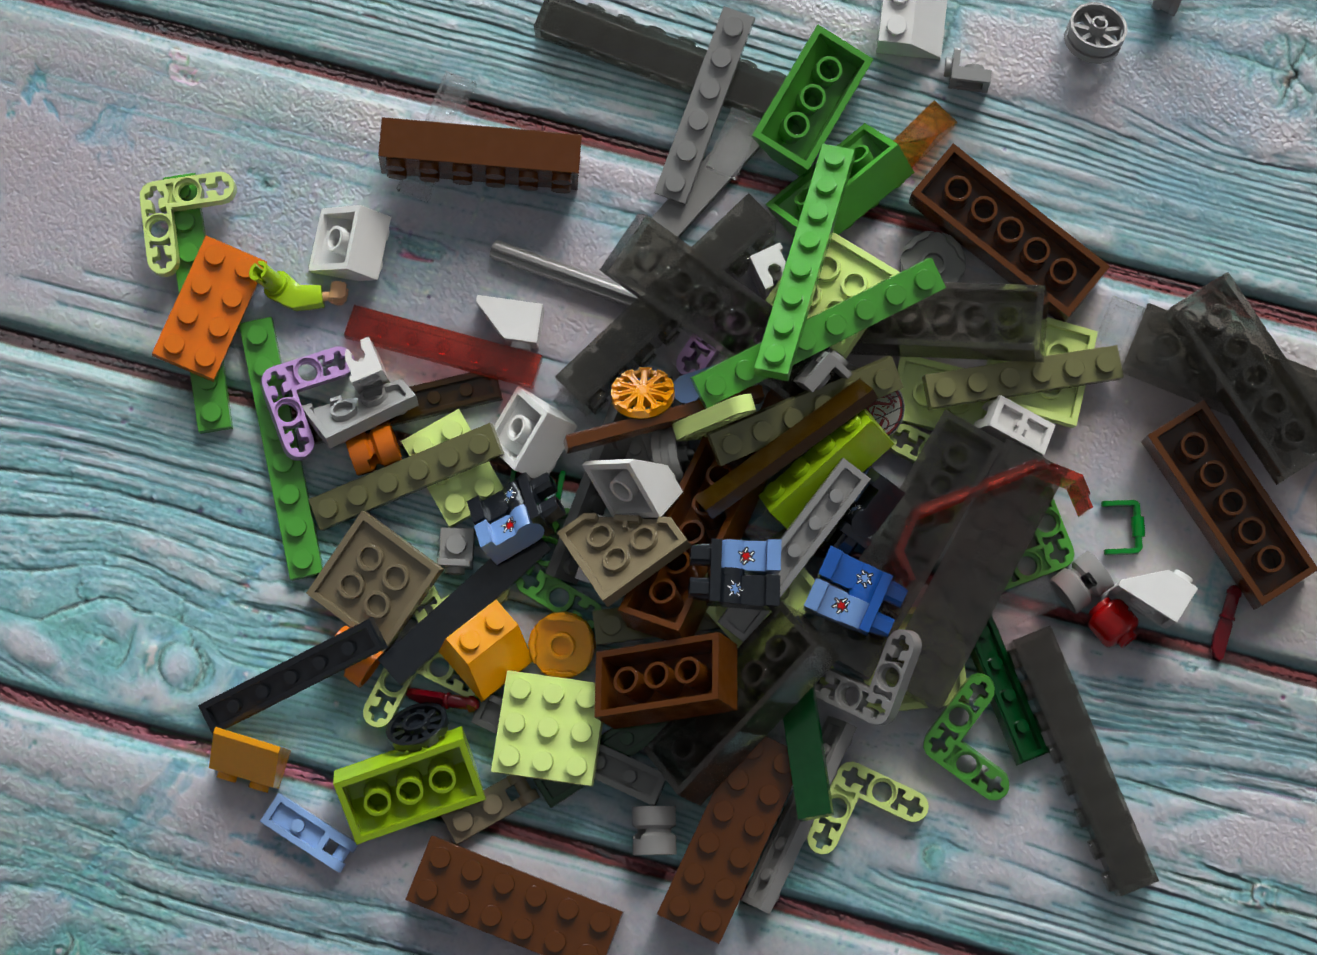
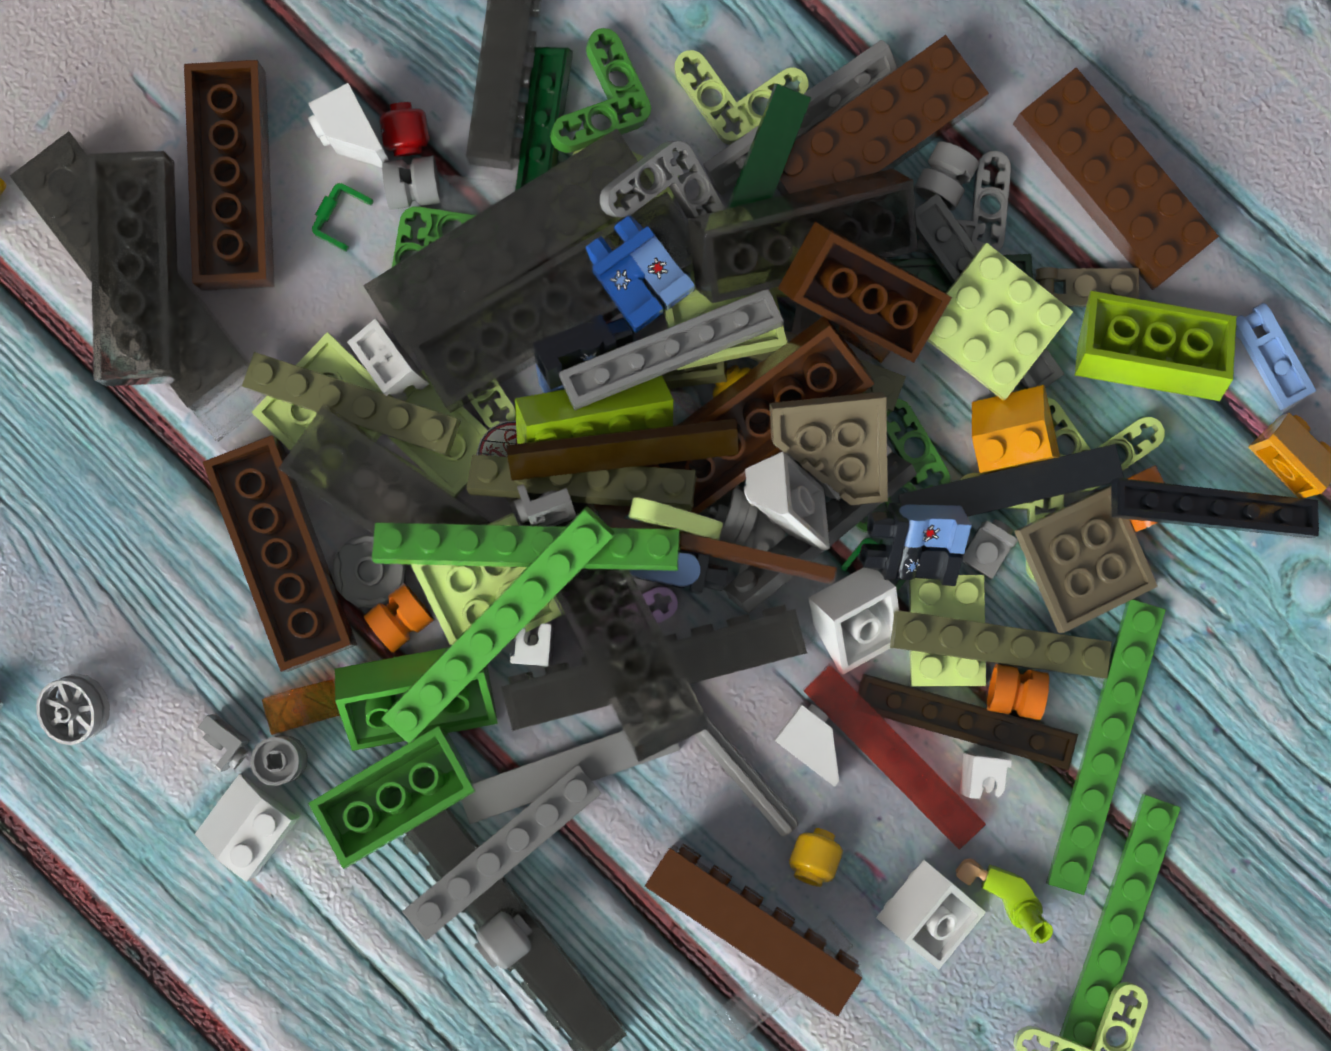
camera: 155 degrees left, 5 degrees up
(208, 309) = (1108, 924): orange plate -> none
(294, 384) = (1063, 799): lavender beam -> none
(353, 416) = (1020, 732): light grey wing -> none
(420, 727) = (1119, 395): black wheel -> none
(445, 700) = (1075, 408): dark red piece -> none
(462, 237) = (815, 857): none -> yellow head
(562, 644) = (937, 399): light orange tile -> none
(609, 800) = (982, 176): none -> light grey beam
(642, 393) = (731, 585): light orange wheel -> none
(665, 39) = (503, 940): none -> light grey head
(733, 144) = (494, 799): clear tile -> none
(738, 574) = (755, 348): black hips -> none
(888, 235) = (398, 618): none -> orange wheel
(915, 81) = (279, 760): none -> light grey wheel
(1053, 473) = (482, 306): clear red windscreen -> none
(1224, 625) = (300, 74): dark red piece -> none

